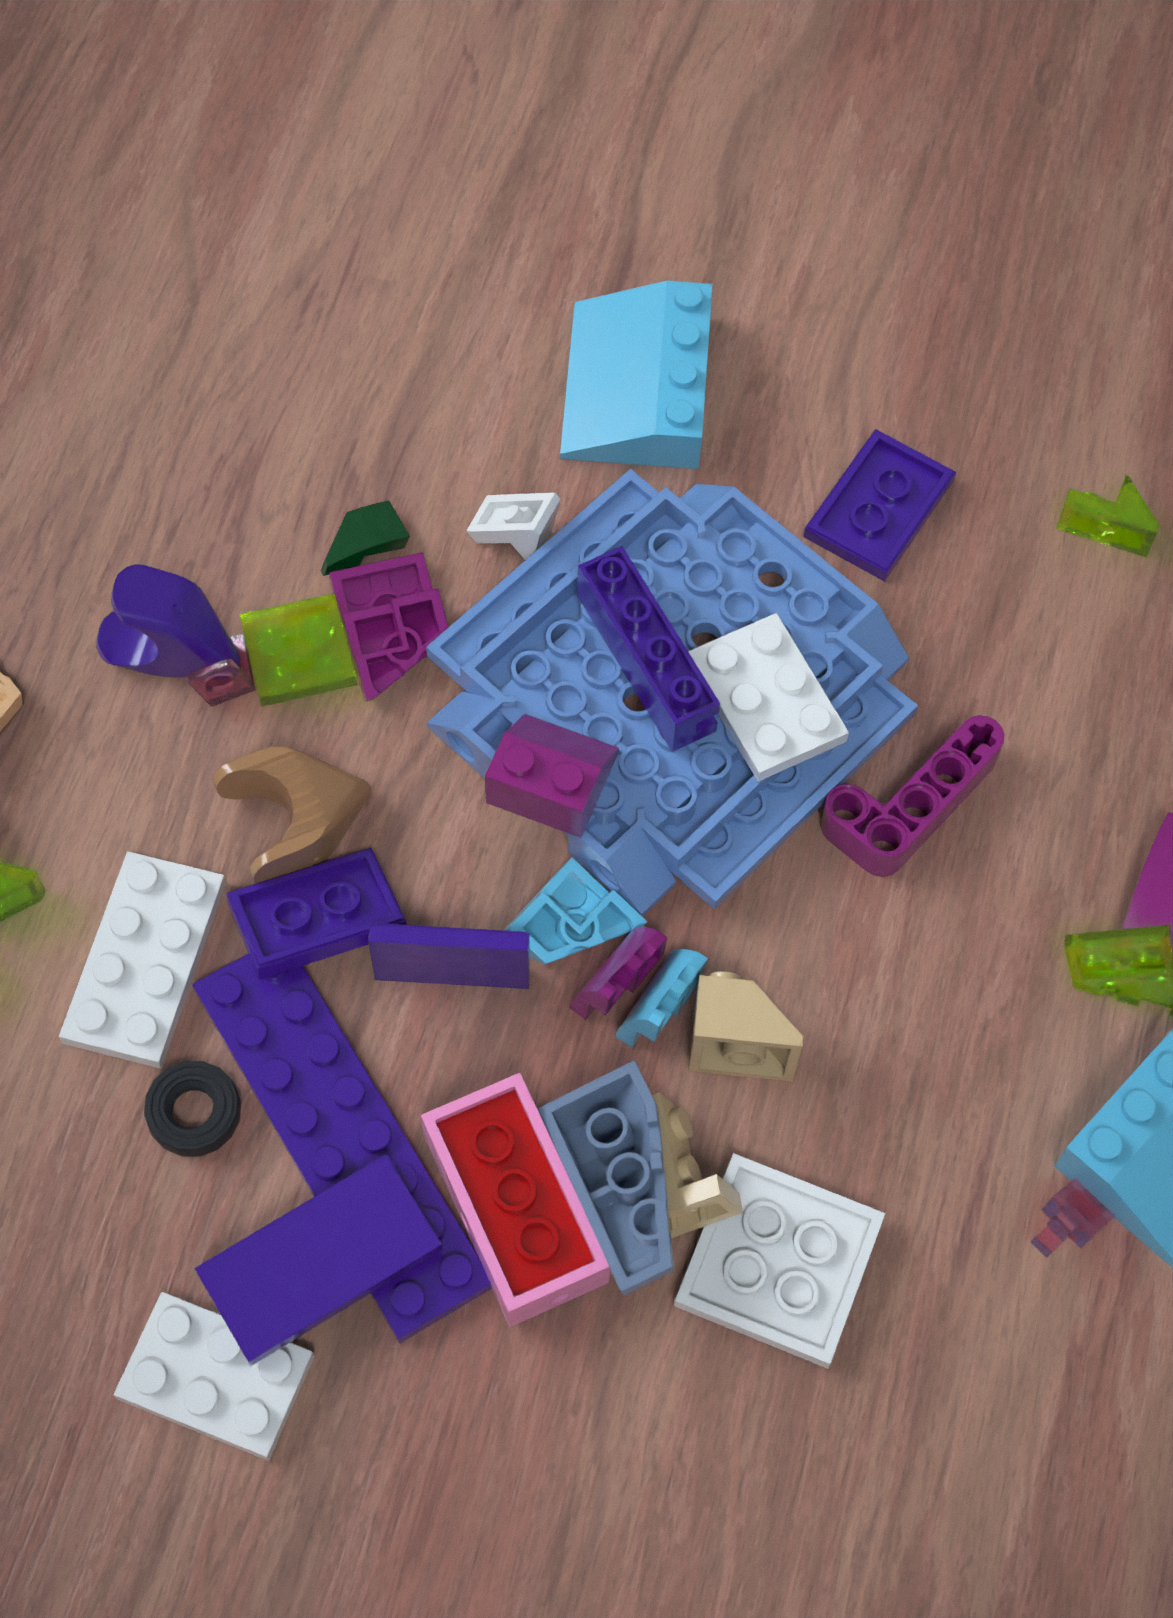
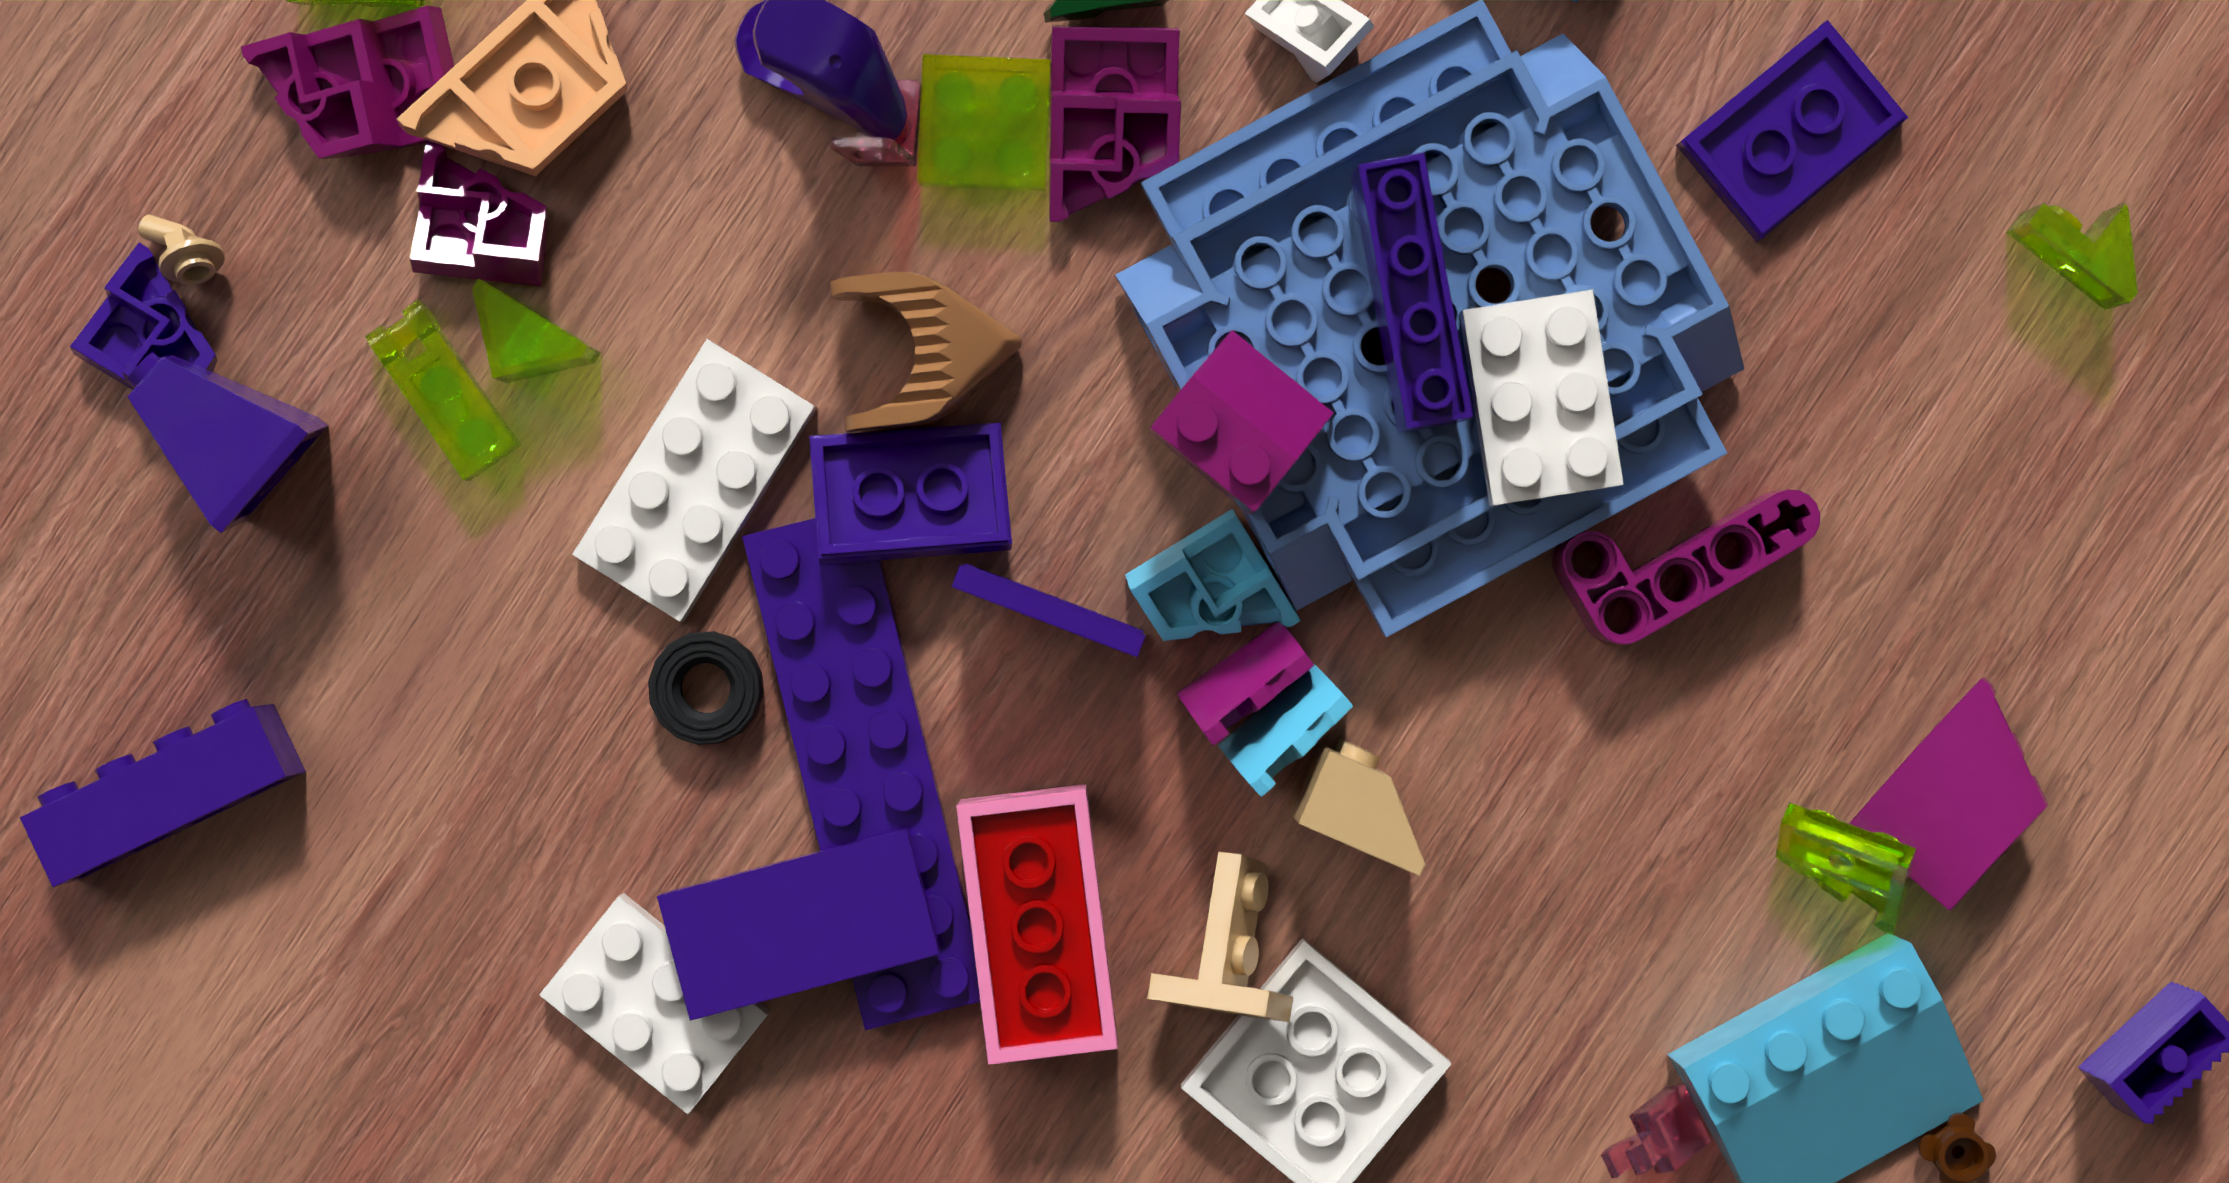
camera: 15 degrees right, 25 degrees up
(616, 1165) = (1160, 934): sand blue wedge -> none

